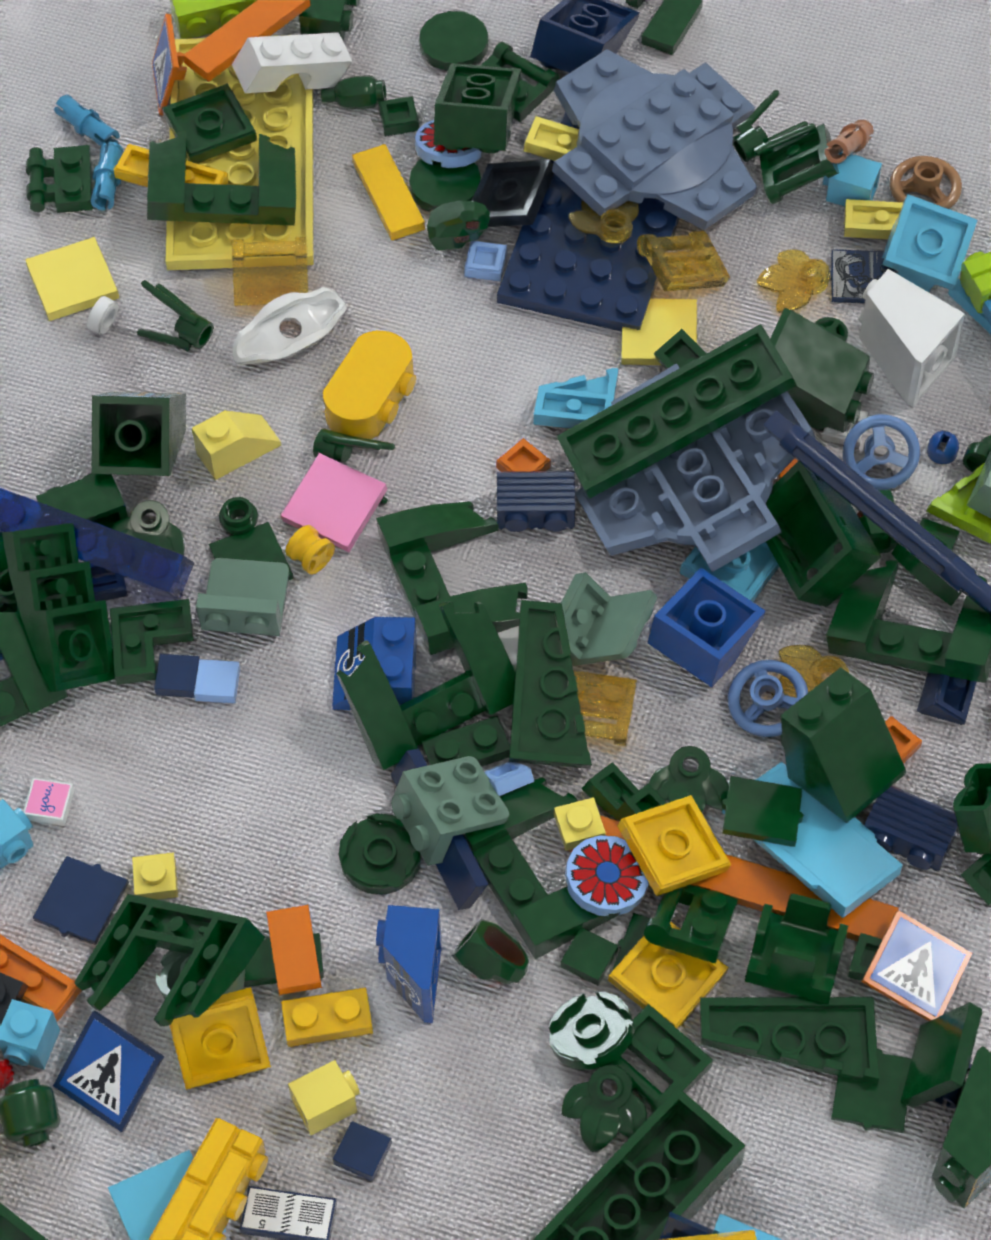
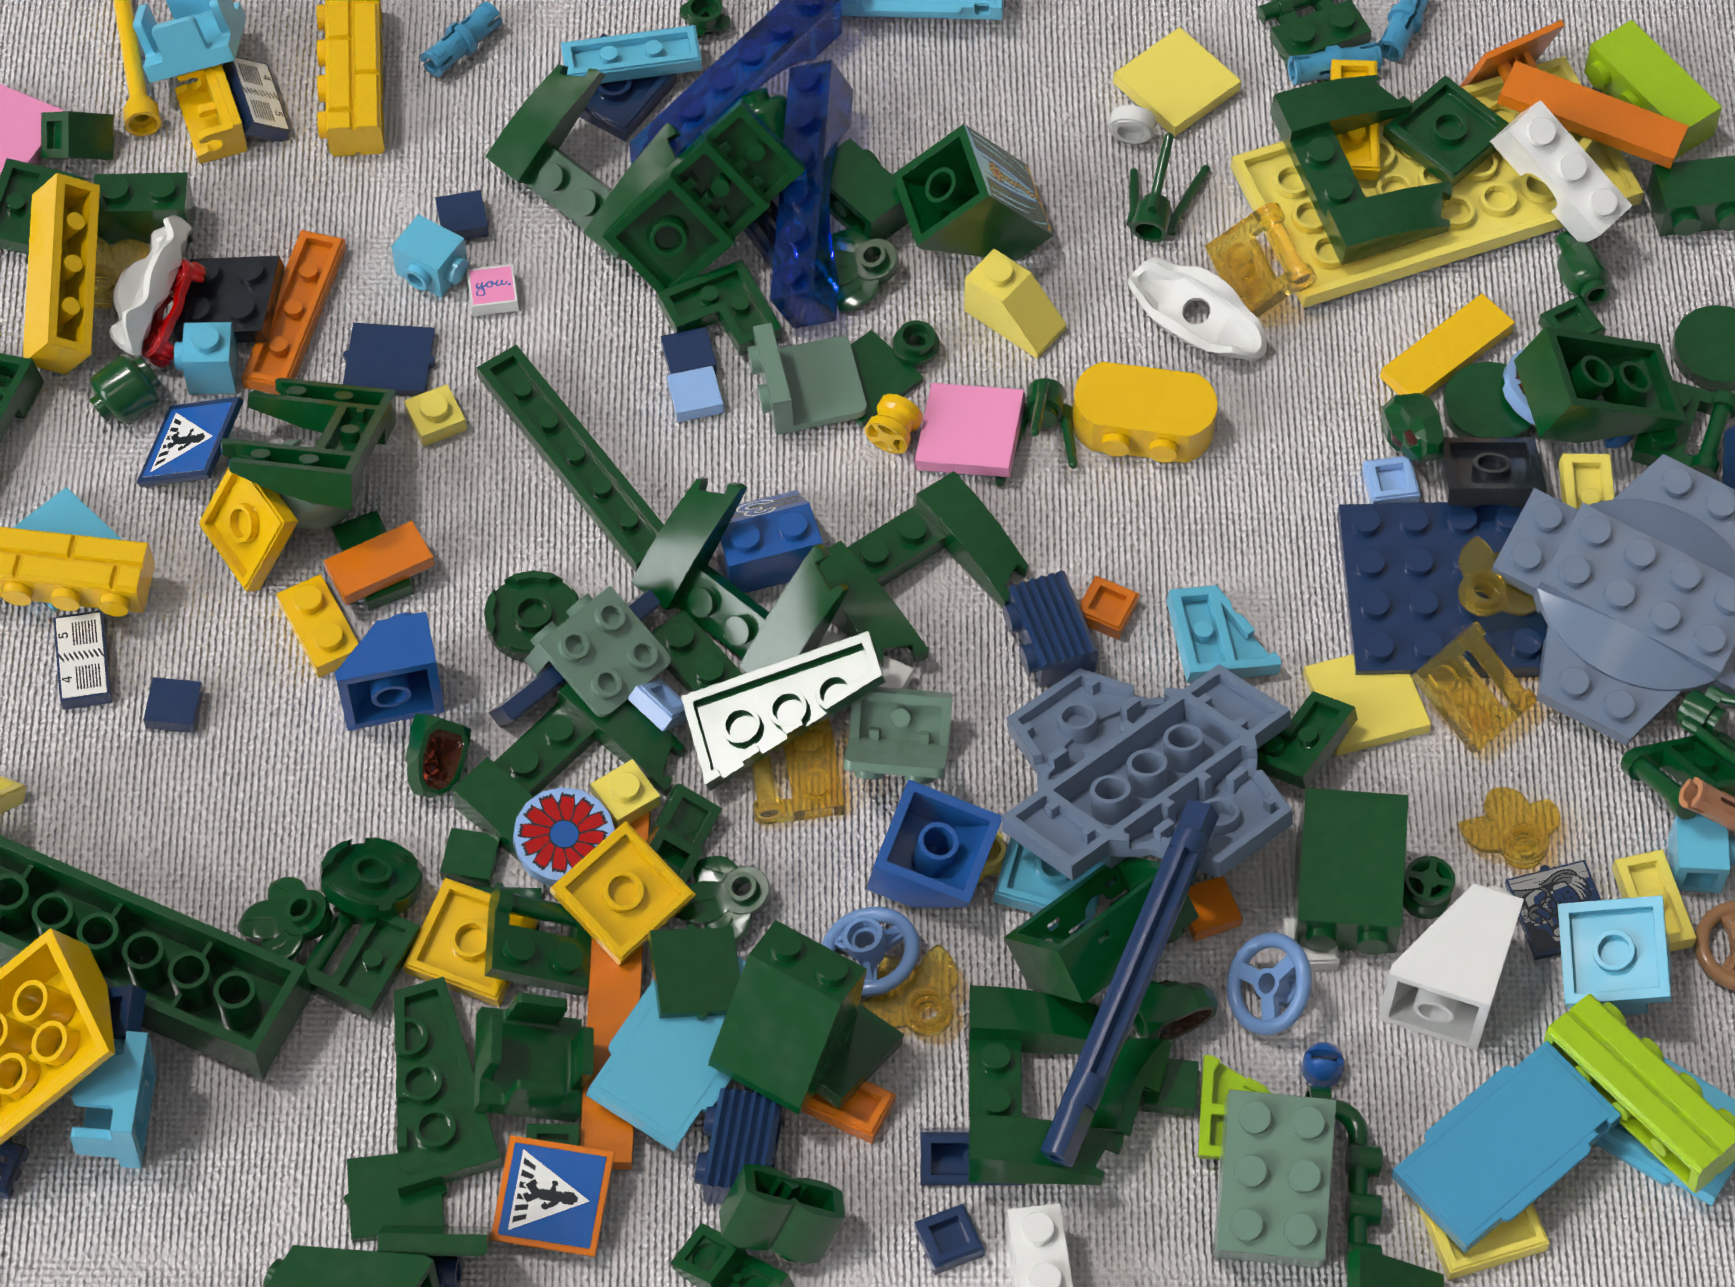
camera: 70 degrees right, 0 degrees up
(245, 780) = (572, 453): none -> dark green plate
(324, 1096) = (218, 645): light yellow brick -> none
(676, 410) = (1208, 722): dark green plate -> none

